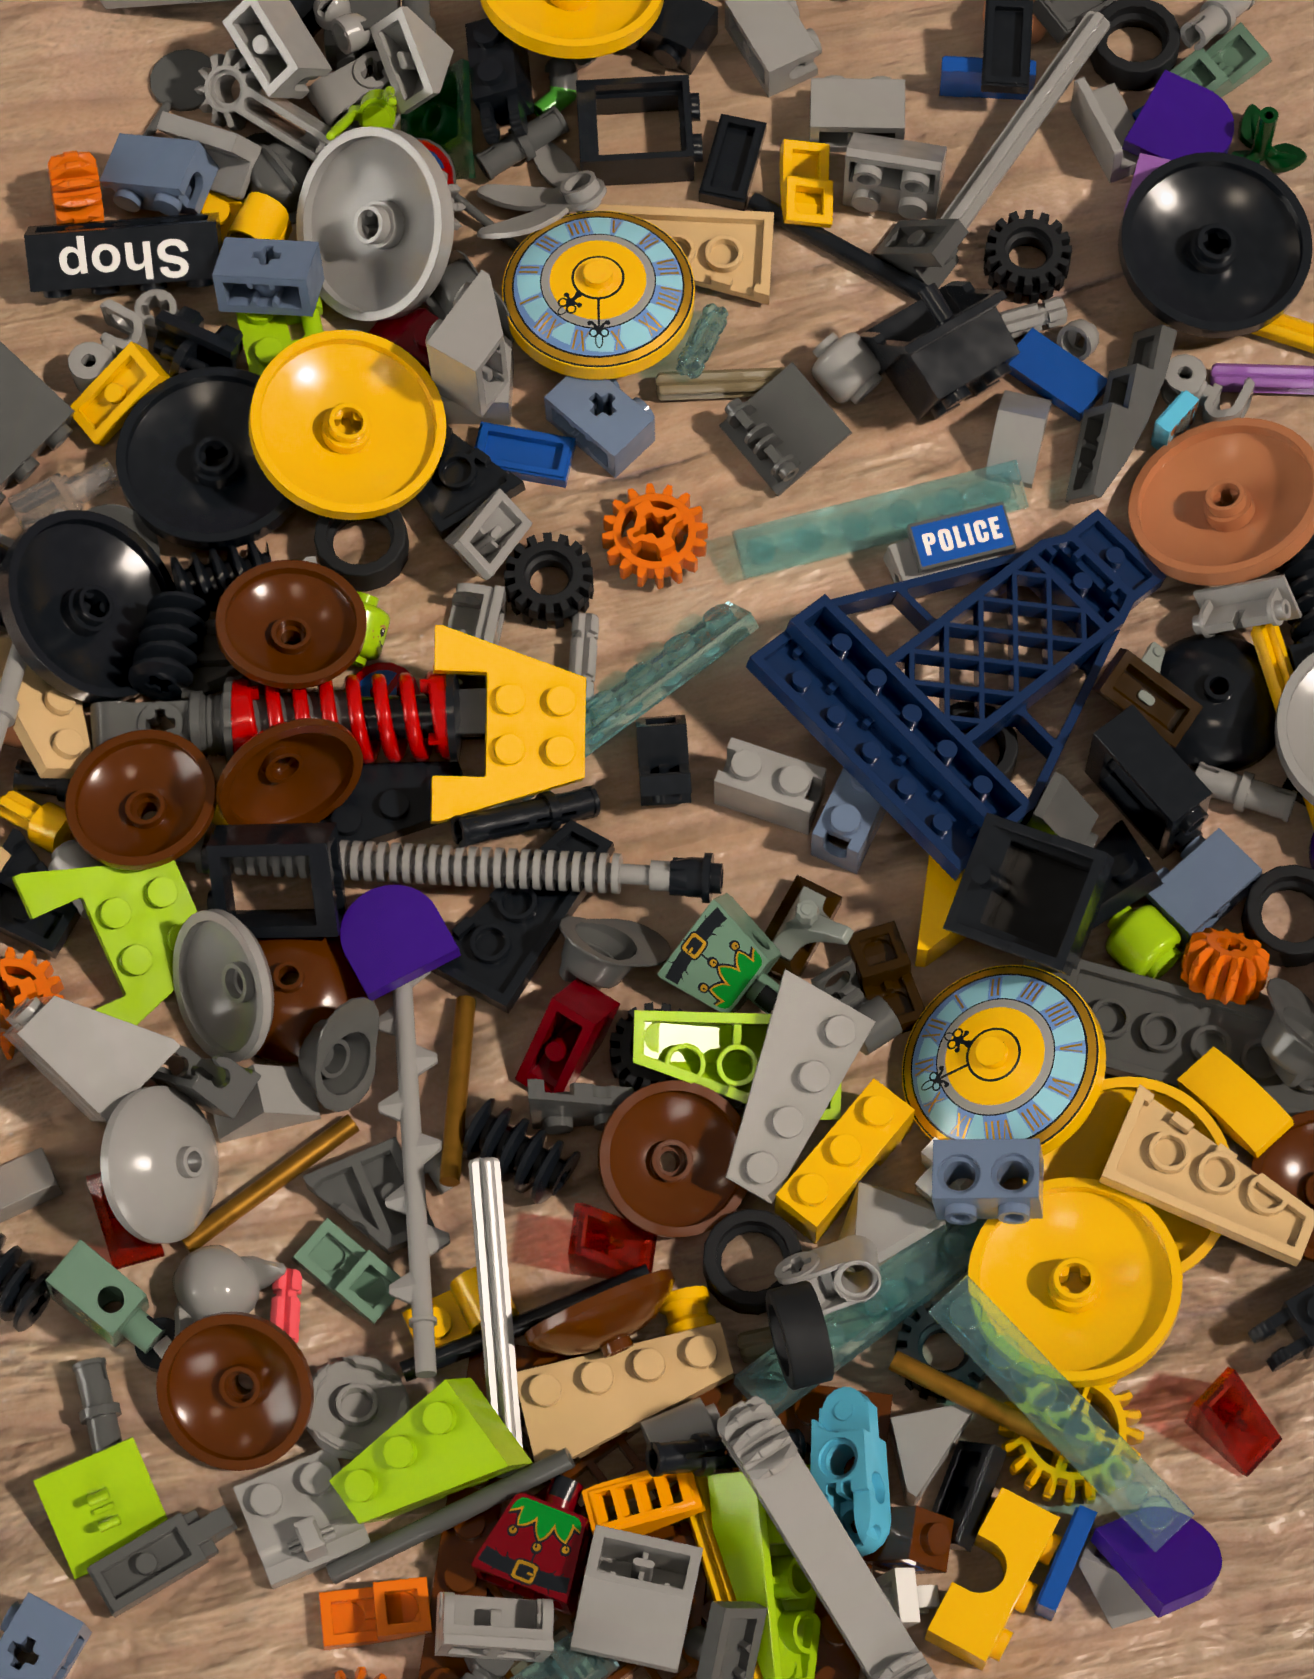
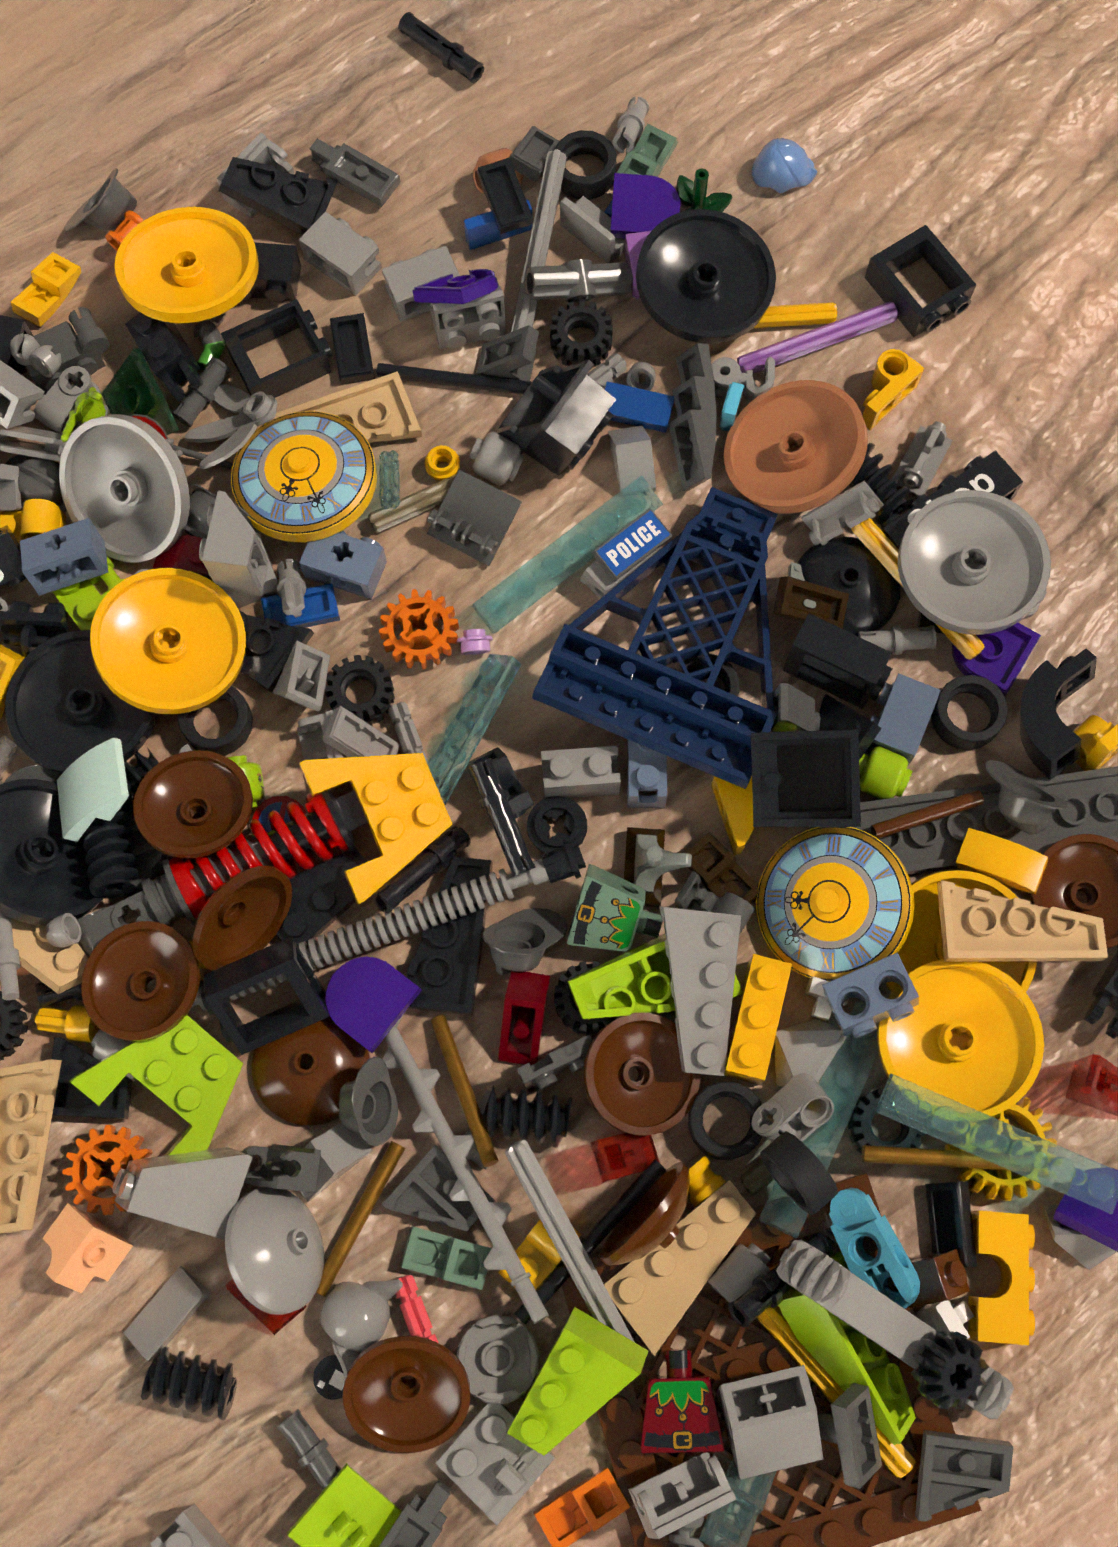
camera: 25 degrees left, 5 degrees up
(78, 707) = (63, 931): none -> light grey hinge
(87, 1283) = (260, 1372): sand green torso -> none
(182, 558) = (92, 788): none -> light aqua slope
(223, 985) = (263, 1093): light grey dish -> none
(411, 57) = (97, 360): light grey slope -> none
(450, 1515) = (602, 1418): dark grey piece -> none
(515, 626) = (356, 737): none -> light grey plate
(522, 422) = (291, 587): none -> light grey axle
(637, 1485) = (714, 1368): light orange slope -> none
(644, 788) = (501, 816): none -> black pin
(715, 579) = (475, 642): none -> lavender plate
(718, 818) = (553, 809): none -> black gear
(778, 335) = (442, 454): none -> yellow plate
(806, 183) = (408, 344): yellow slope -> none
(875, 1643) = (949, 1370): none -> black gear
(889, 141) = (457, 289): none -> dark purple tile
(922, 1445) = (907, 1203): light grey slope -> none
(1052, 188) = (578, 280): none -> dark grey piece
(1064, 1562) = (1043, 1254): blue tile -> none
(1172, 1010) = (927, 814): none -> reddish brown bar
(1225, 966) = (947, 767): orange gear -> none

